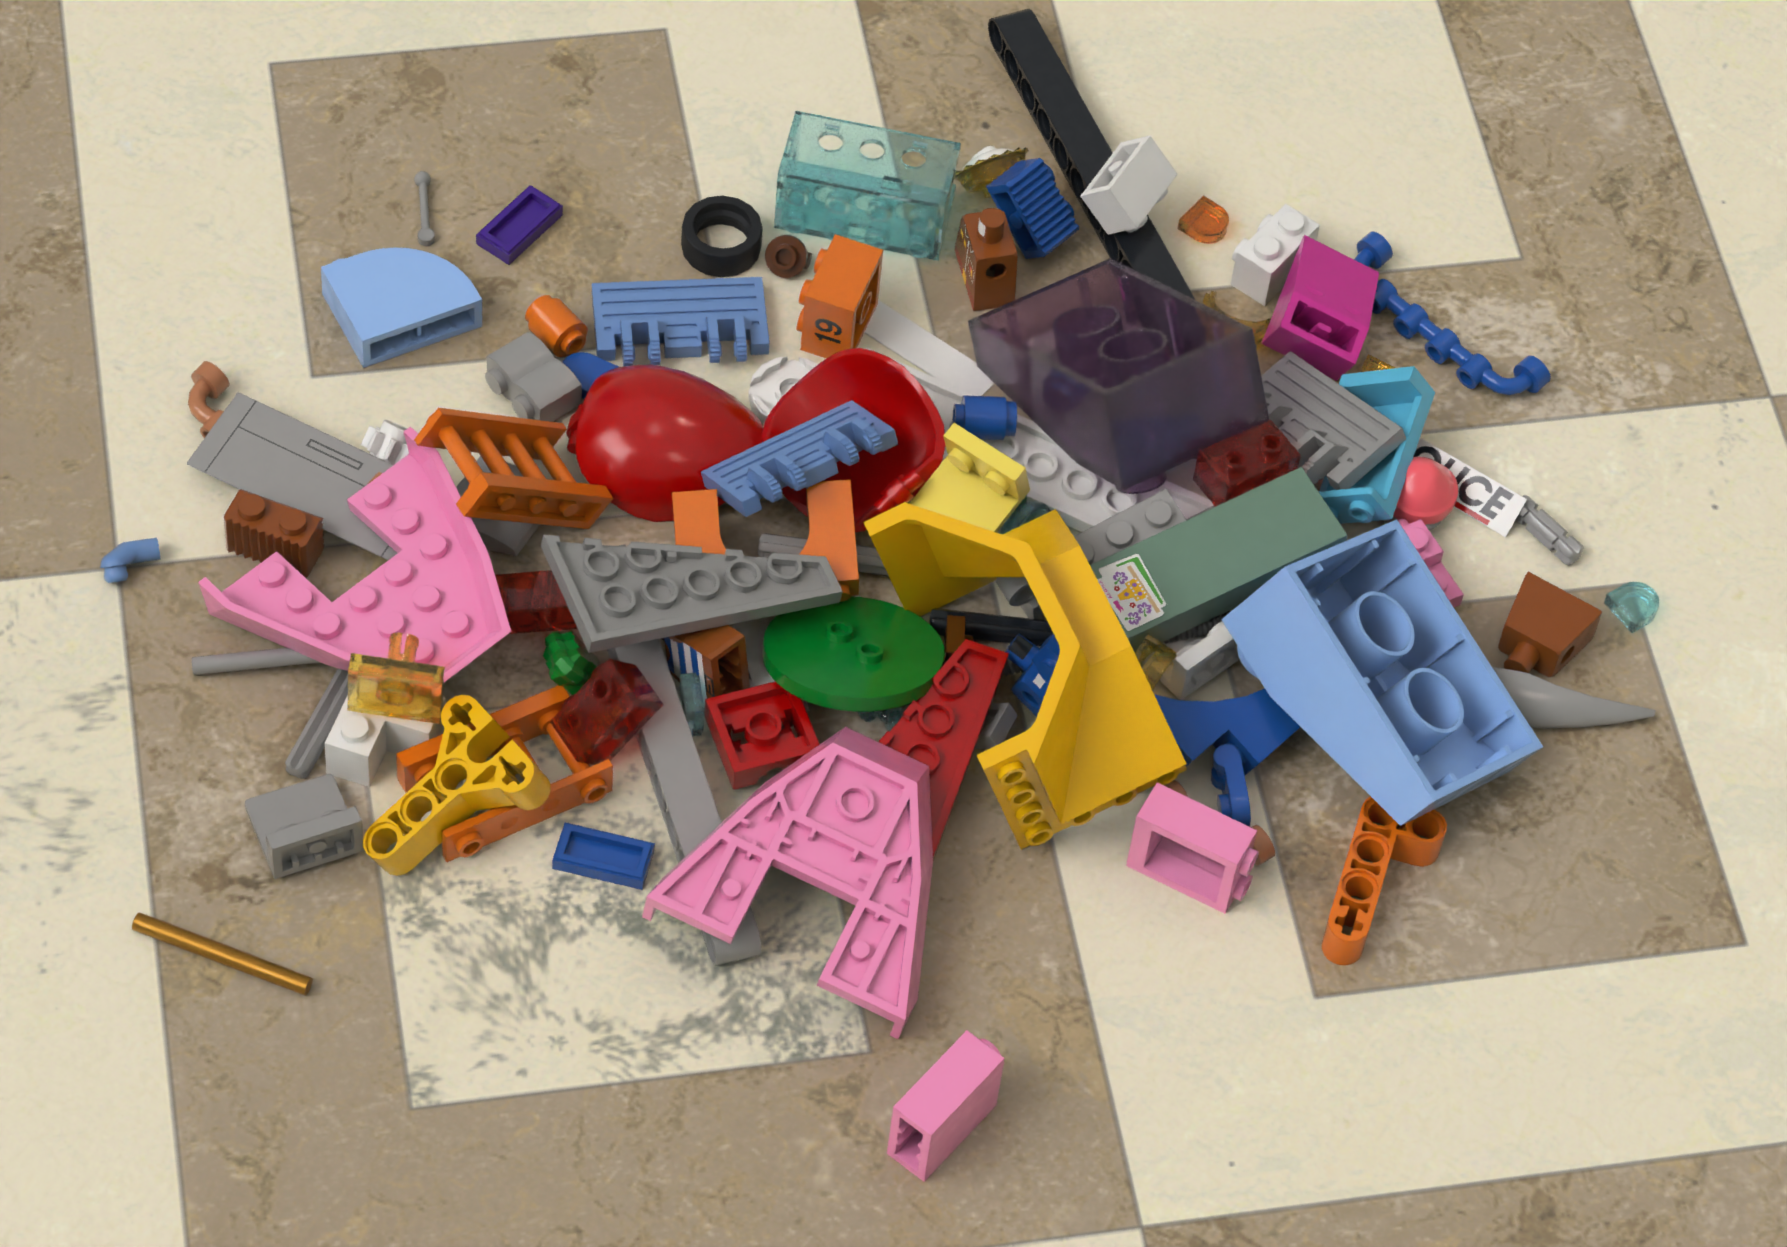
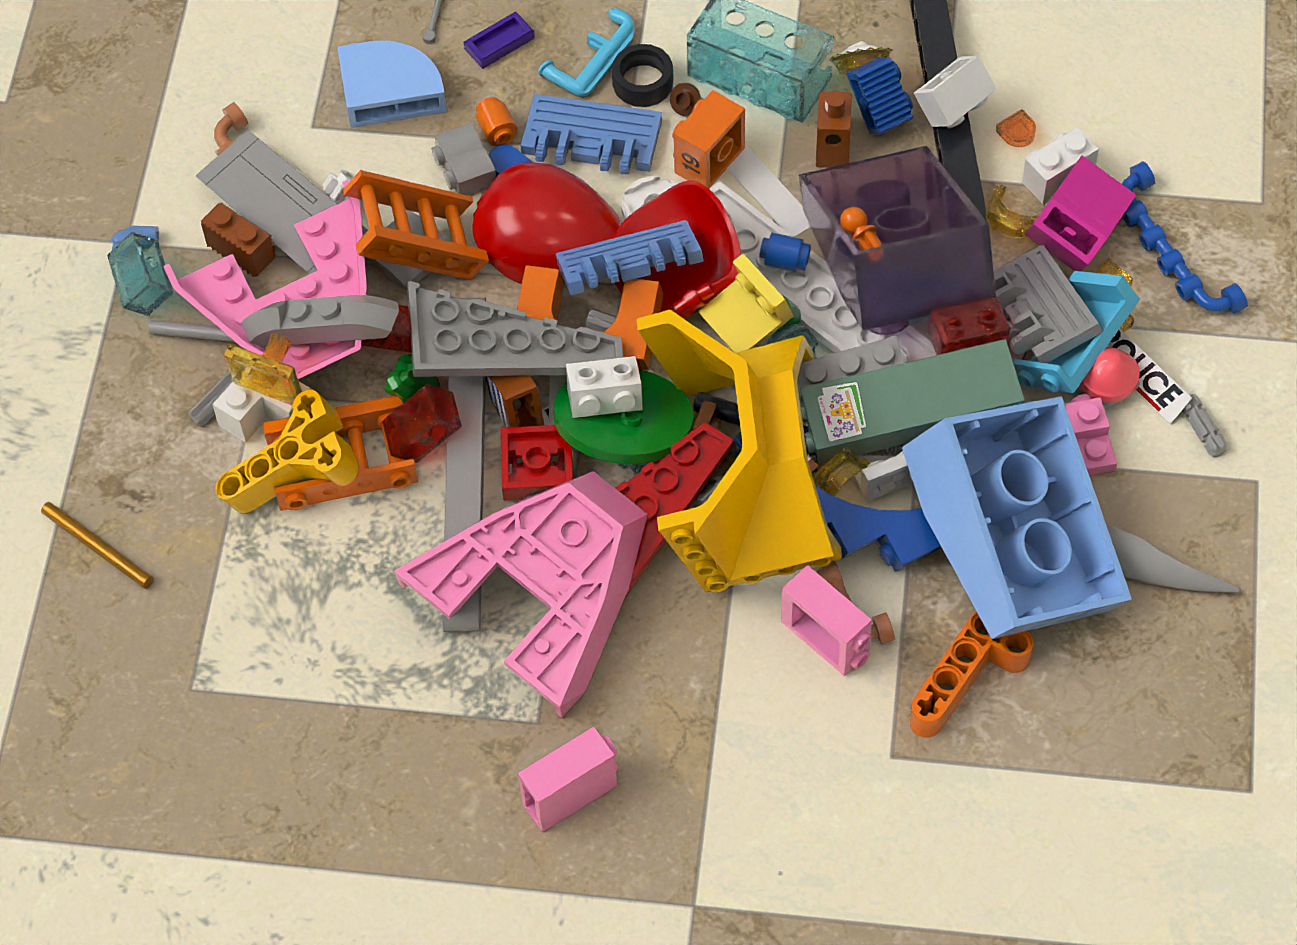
camera: 25 degrees right, 5 degrees up
(160, 600) = (140, 274): none -> clear light blue brick
(305, 825) = (184, 462): light grey bracket -> none
(449, 605) = (322, 320): none -> light grey brick
(603, 856) = (392, 530): blue tile -> none
(667, 217) = (601, 61): none -> medium azure piece
(692, 702) = (492, 433): clear light blue tile -> none
(827, 620) = (604, 386): none -> white brick
(1080, 358) = (855, 222): none -> orange axle
(1229, 777) = (877, 591): blue plate -> none
(1546, 627) = (1172, 504): dark orange torso -> none
(1633, 604) = (1253, 499): clear light blue tile -> none

